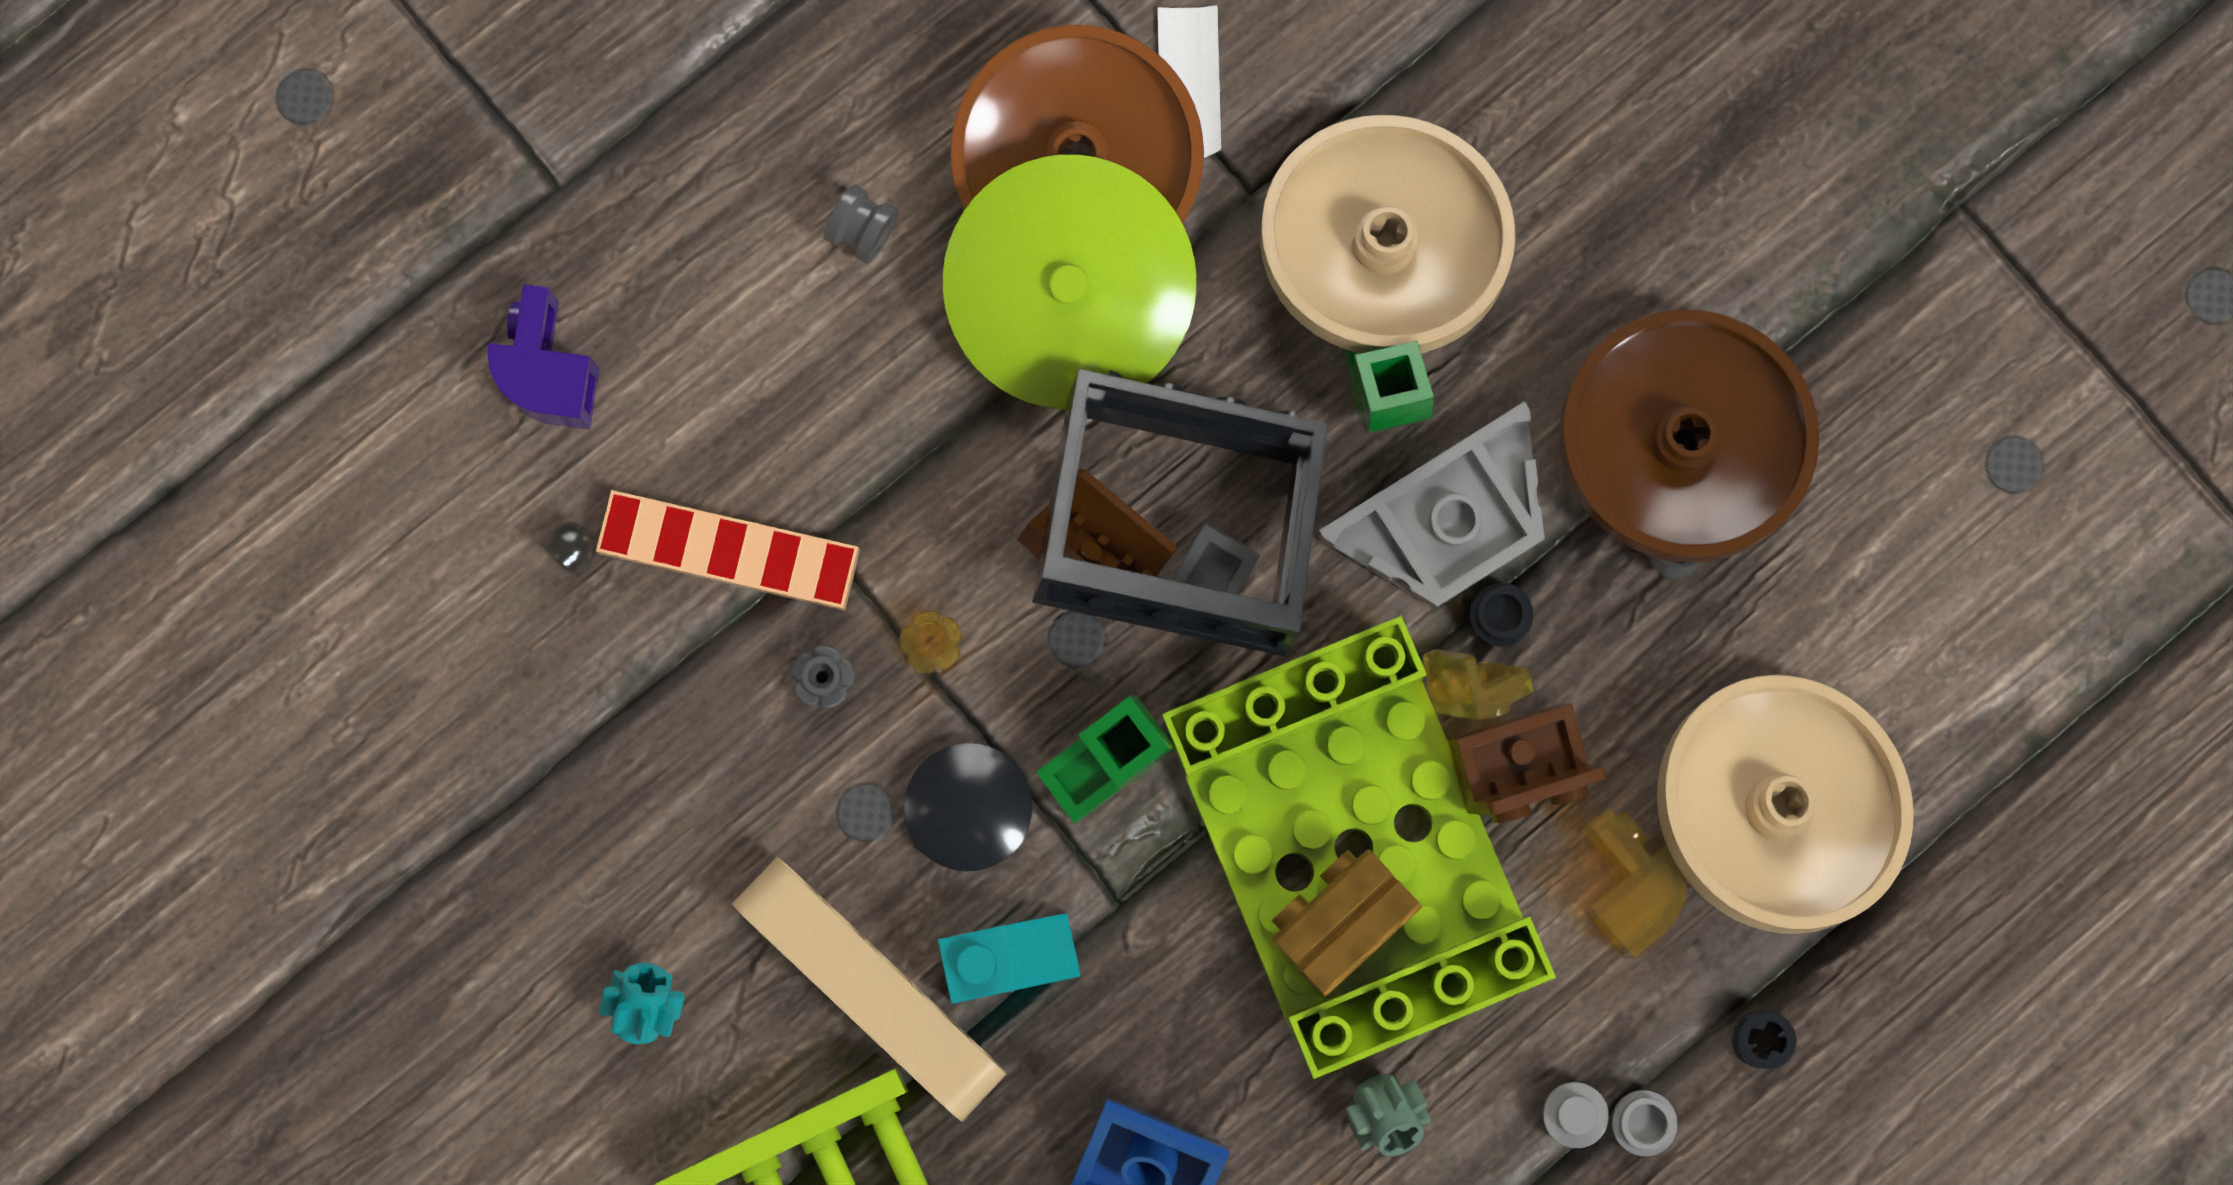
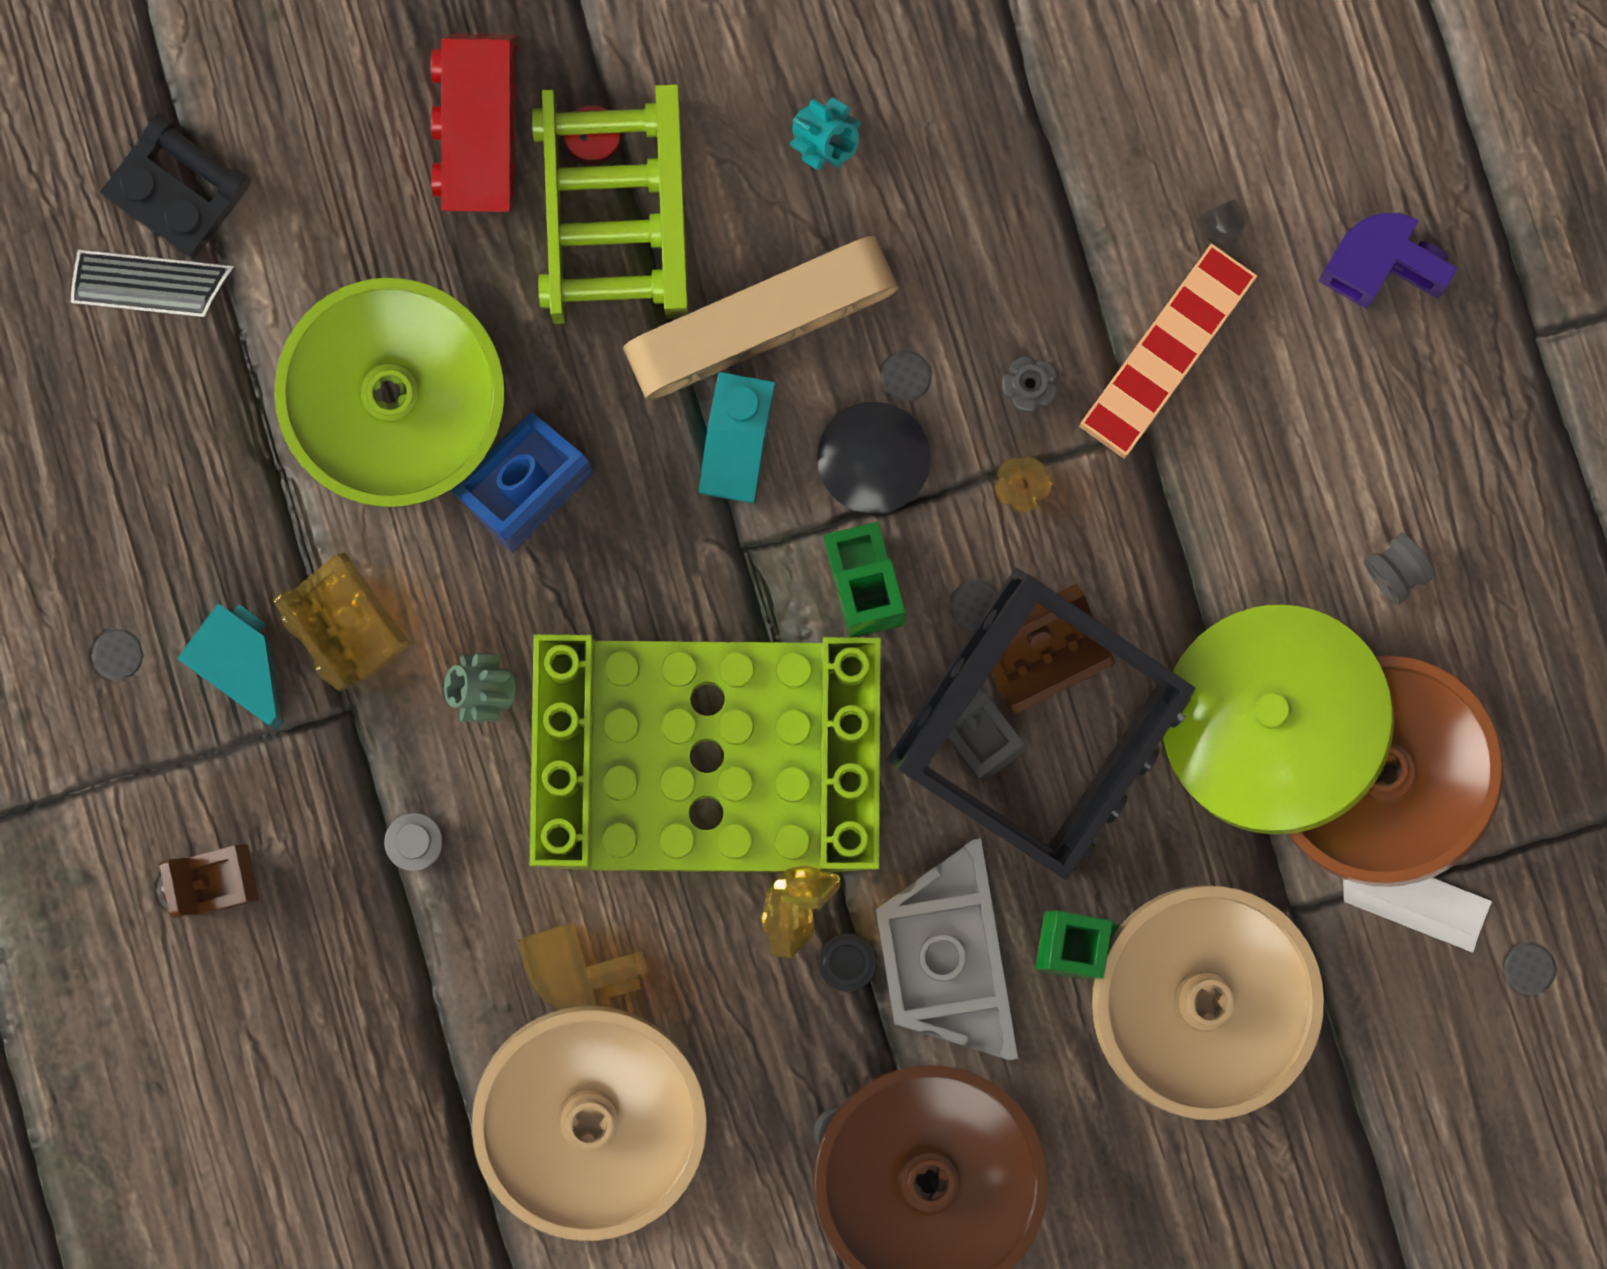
camera: 115 degrees right, 0 degrees up
(1343, 921) = (649, 713): pearl gold brick -> none
(1523, 763) = (714, 922): reddish brown bracket -> none
(1644, 1123) = (382, 895): light grey plate -> none
(1769, 1059) = (388, 1025): black bush -> none

